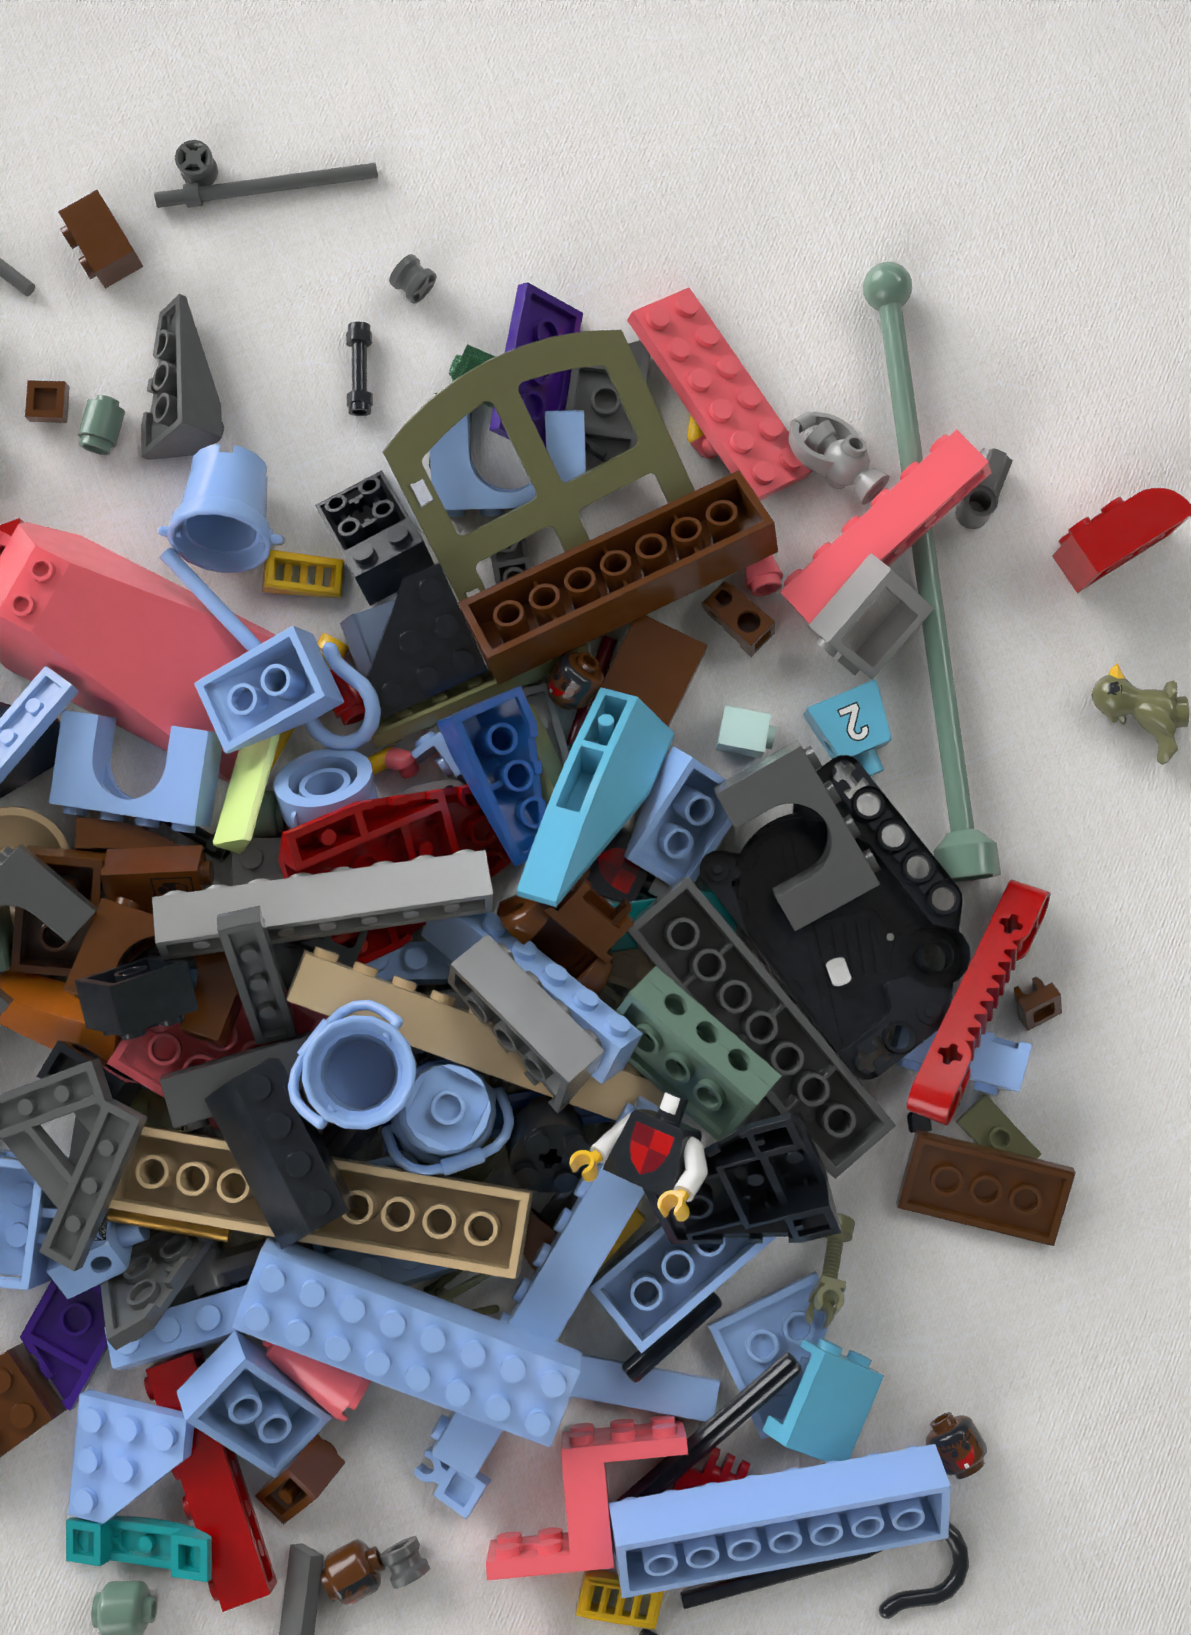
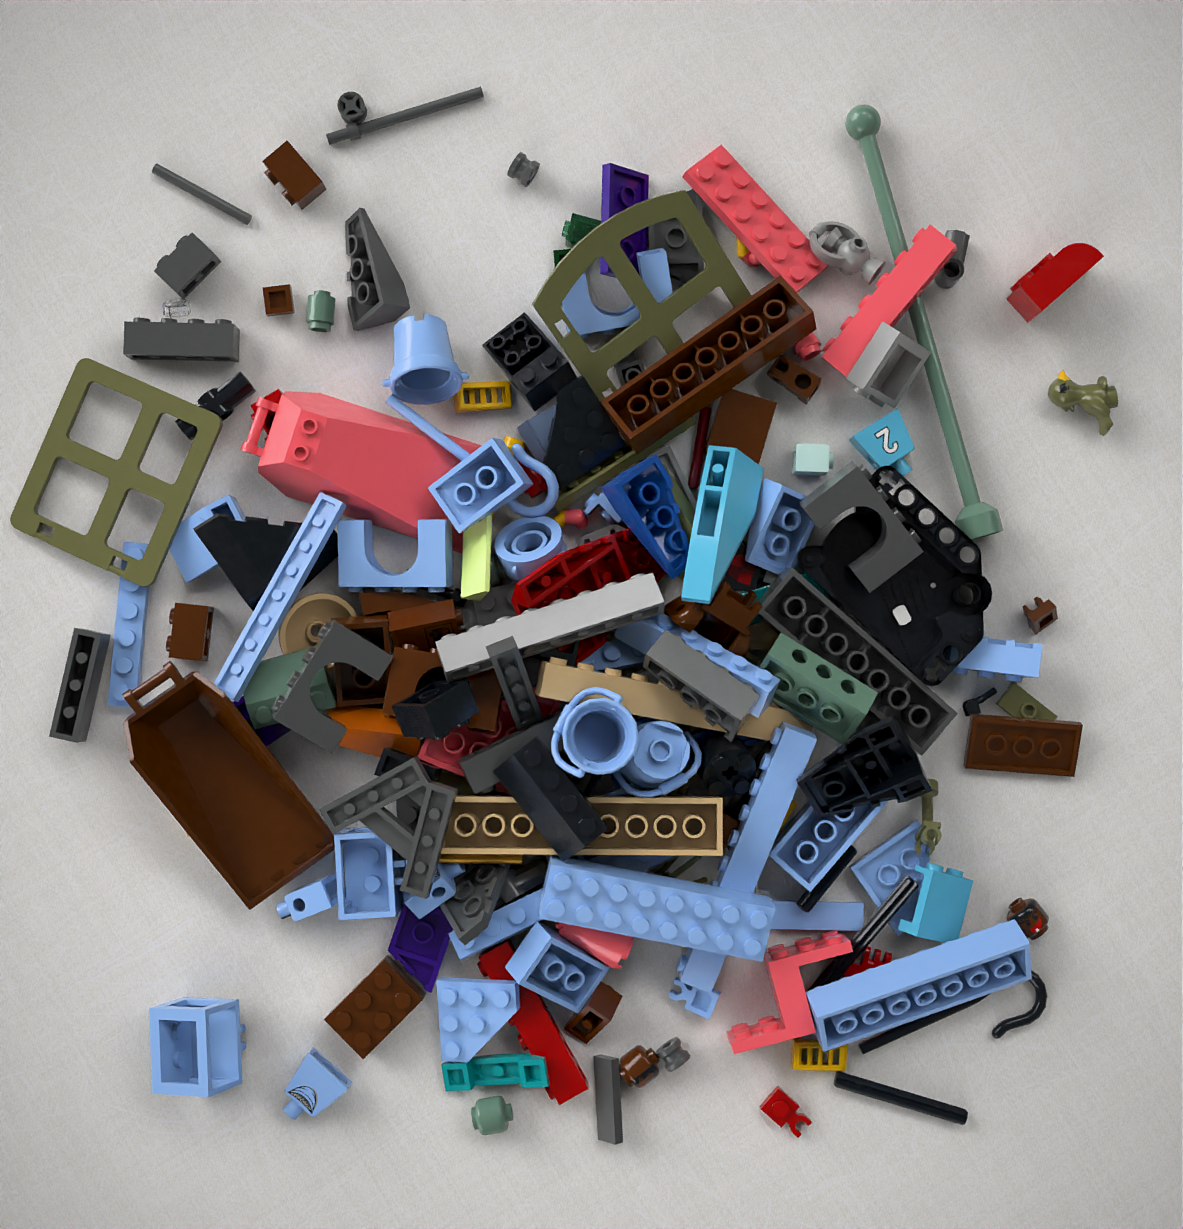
camera: 15 degrees left, 5 degrees up
(359, 399) = (492, 218): black bar -> none
(574, 680) = (688, 442): reddish brown head -> none
(652, 1153) = (802, 758): torso -> none
(1006, 940) = (1013, 576): red gear -> none

